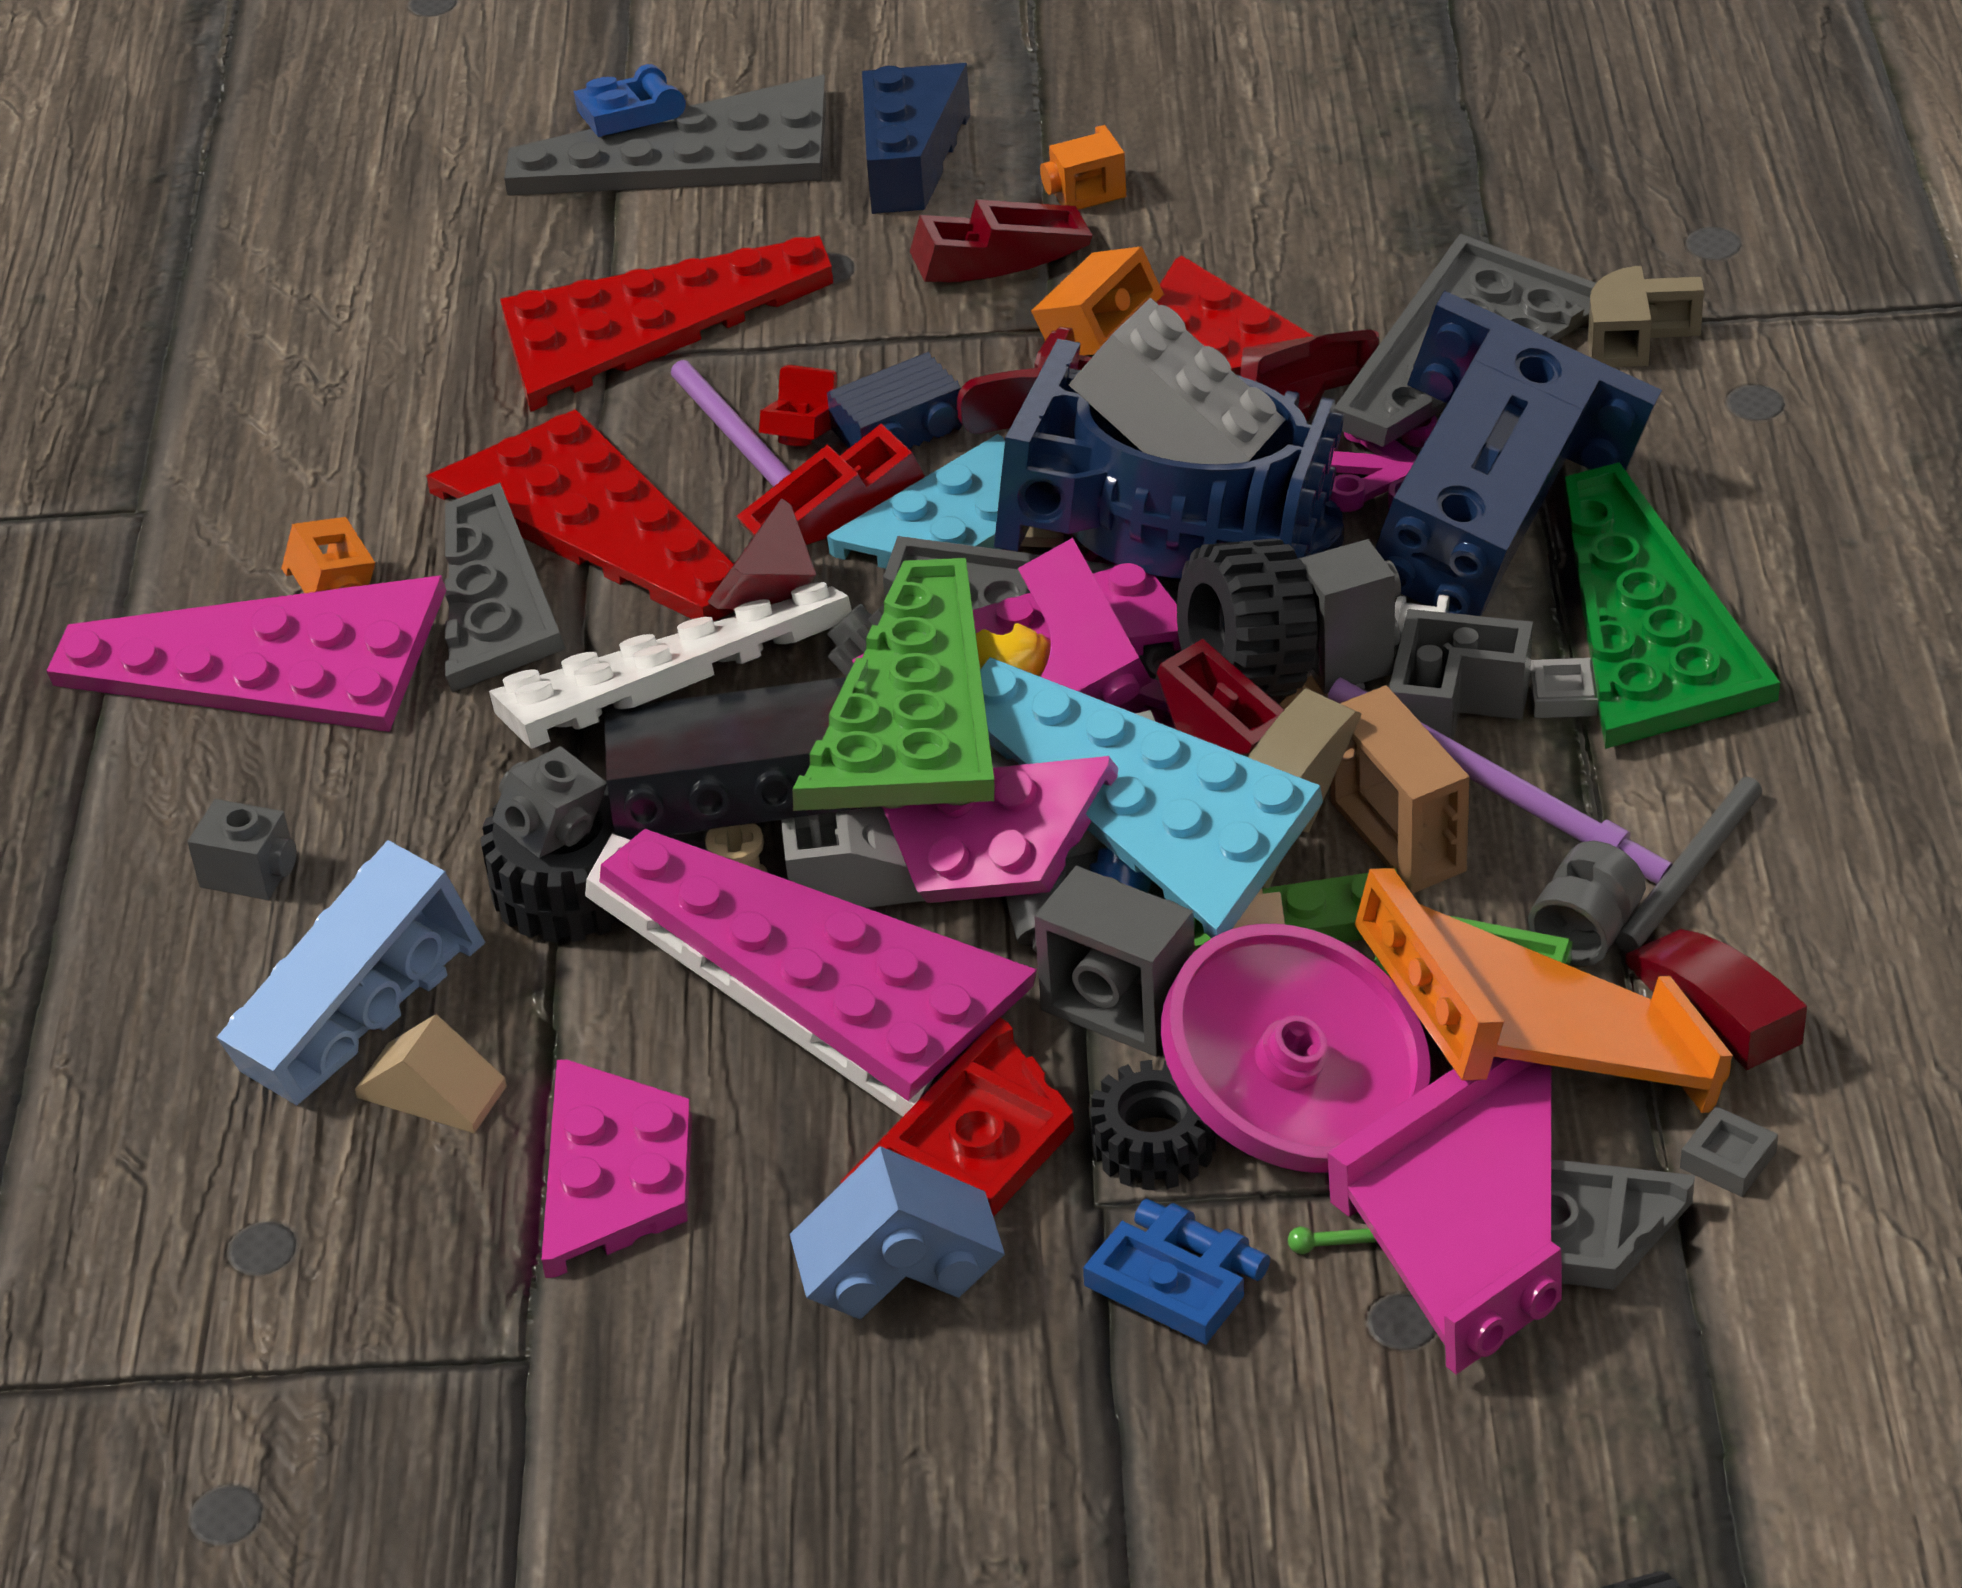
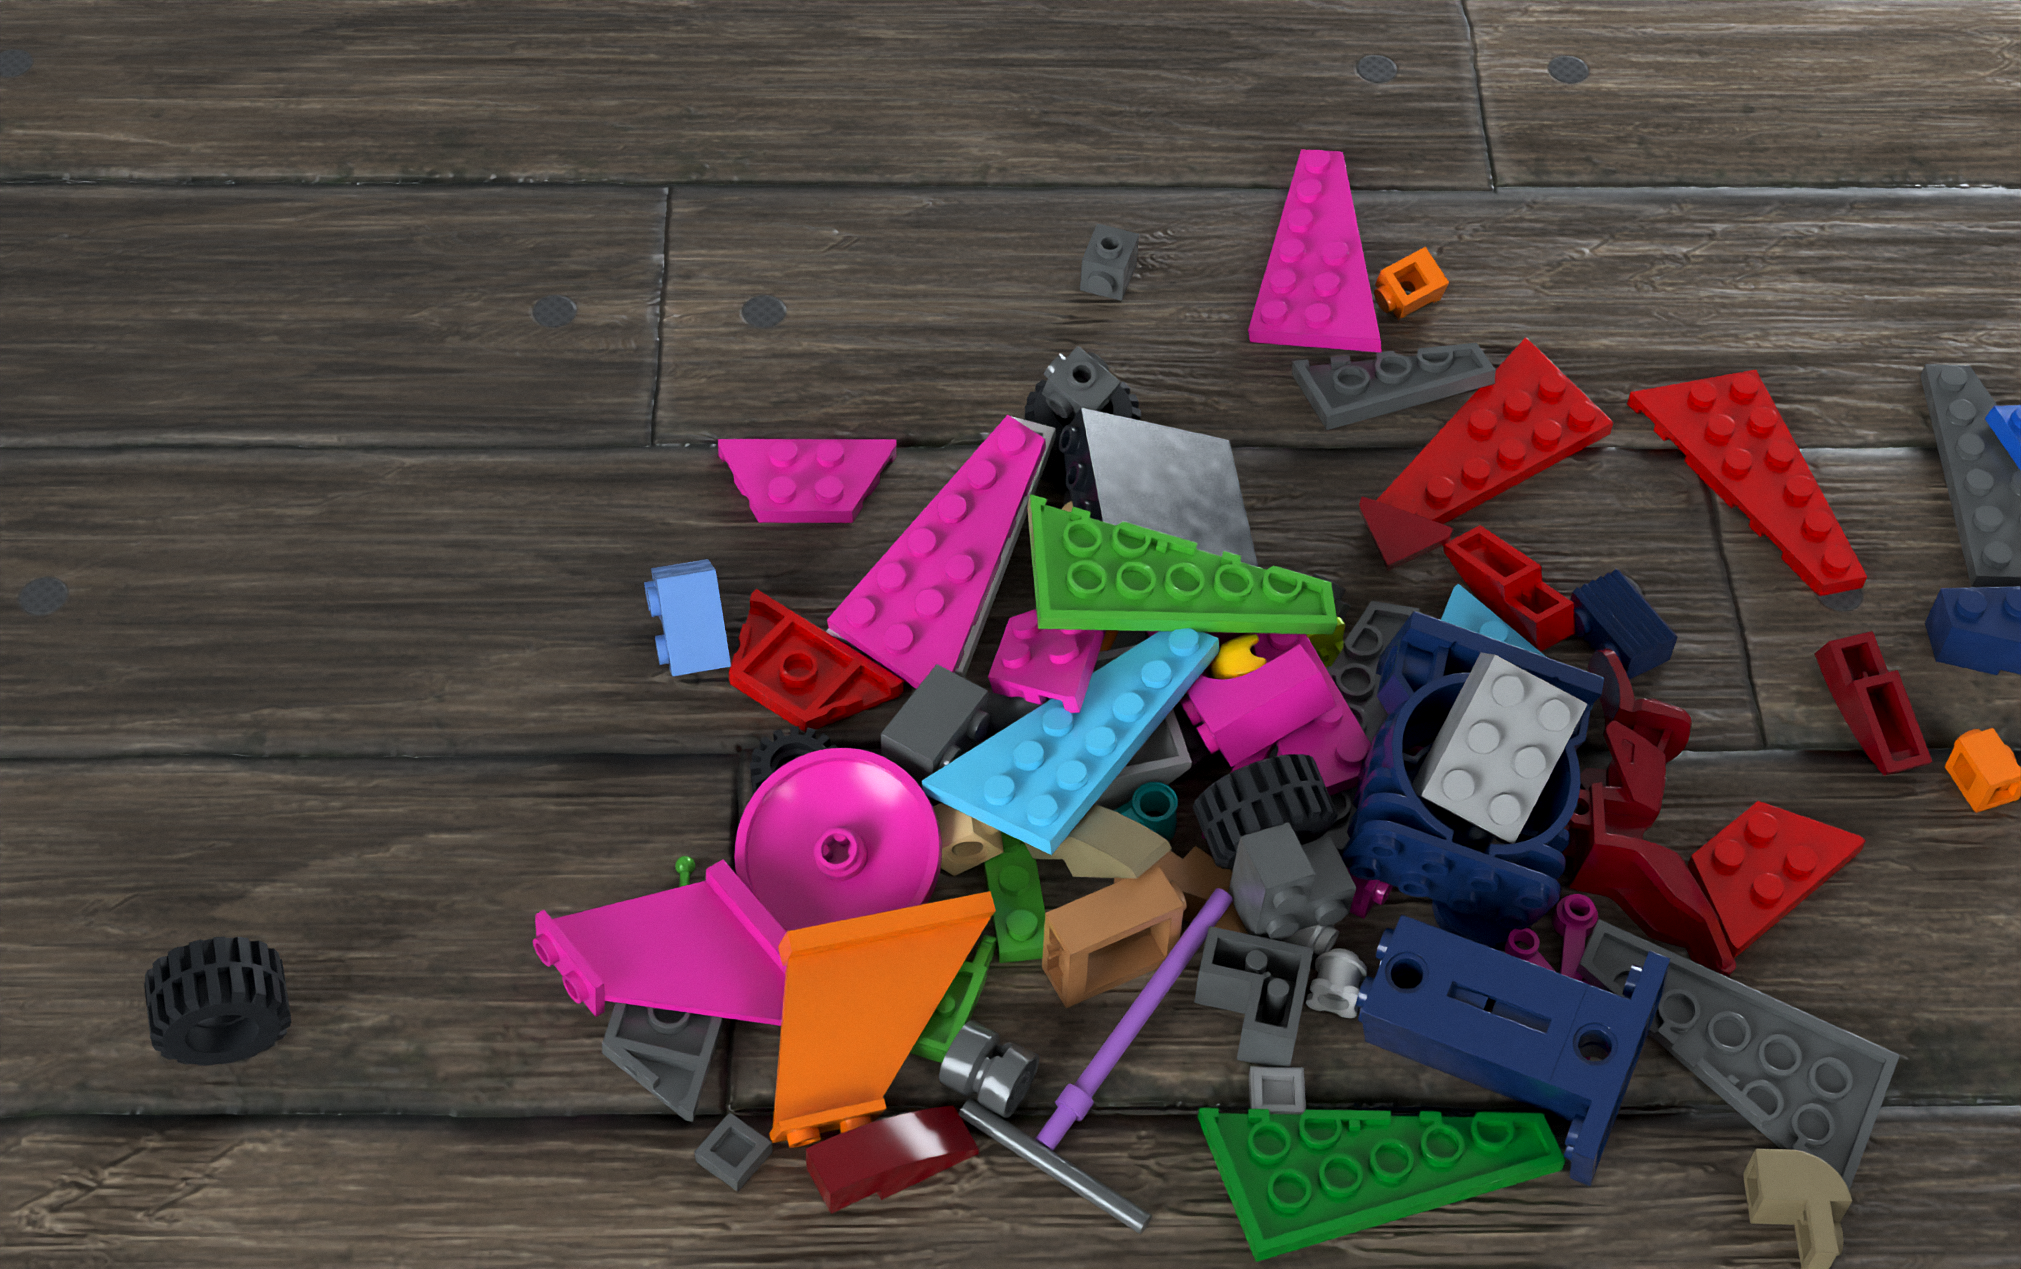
camera: 85 degrees right, 10 degrees up
(351, 973) = (972, 321): light blue wedge -> none
(434, 1077) = (887, 379): tan slope -> none
(657, 667) = (1283, 466): white wing -> none
(729, 422) = (1608, 525): medium lavender bar -> none
(801, 405) = (1603, 554): red bracket -> none
(1099, 296) = (1770, 765): orange brick -> none
(1169, 1283) = (650, 773): blue plate -> none
(1215, 699) = (1169, 792): dark red slope -> none

